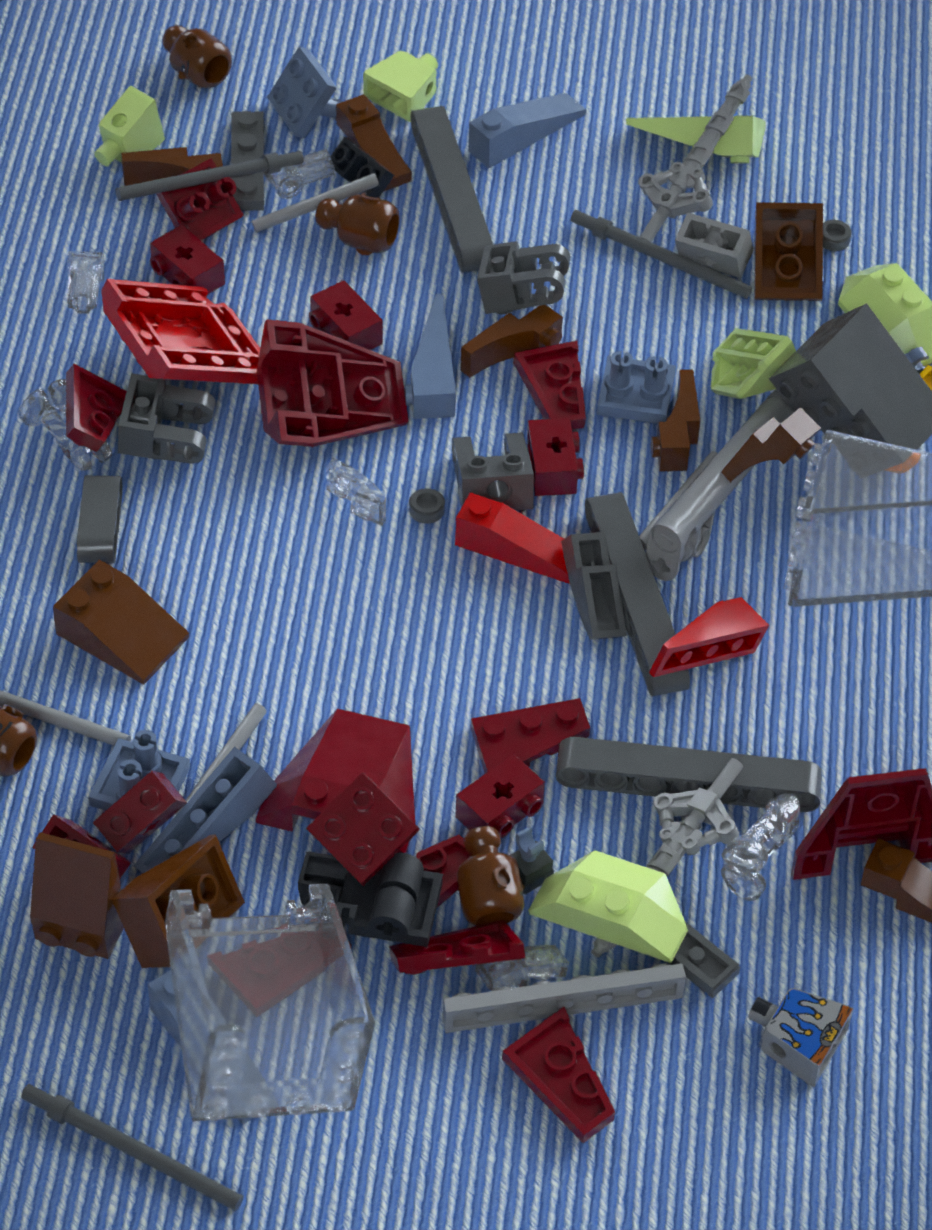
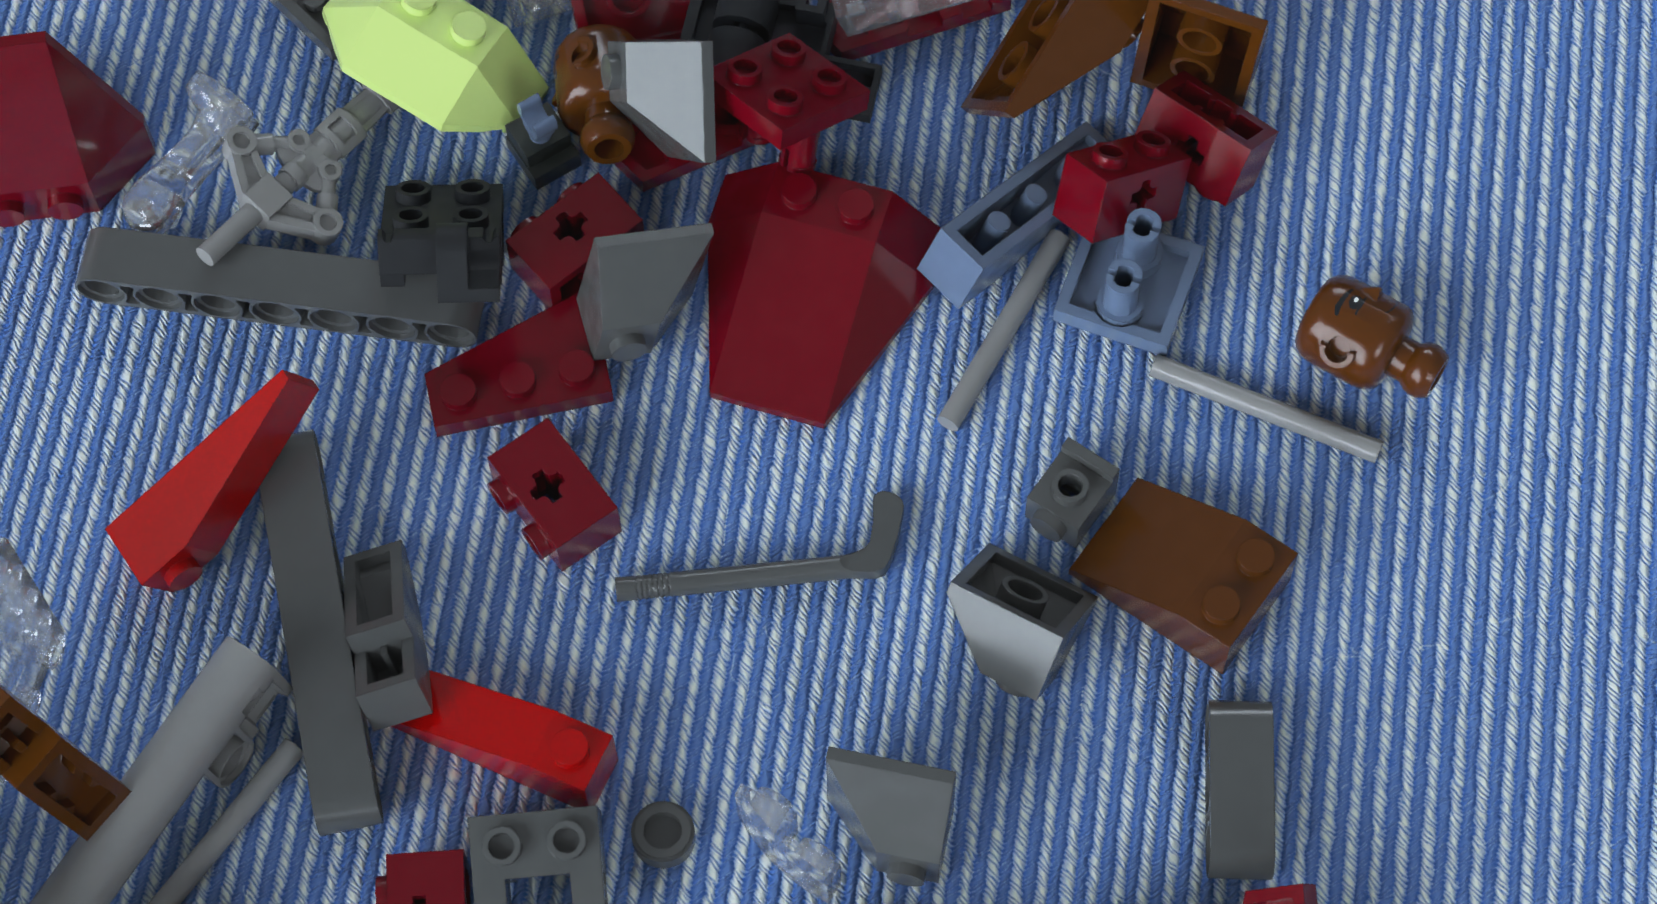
camera: 175 degrees left, 15 degrees up
(185, 662) = (1081, 473): none -> dark grey brick
(218, 597) = (1018, 619): none -> dark grey slope
(297, 500) = (894, 812): none -> dark grey slope
(313, 632) = (863, 564): none -> dark grey piece
(445, 833) = (666, 93): none -> slope
(452, 754) = (639, 287): none -> dark grey slope
(502, 658) = (546, 464): none -> dark red brick
(585, 784) = (444, 233): none -> black plate

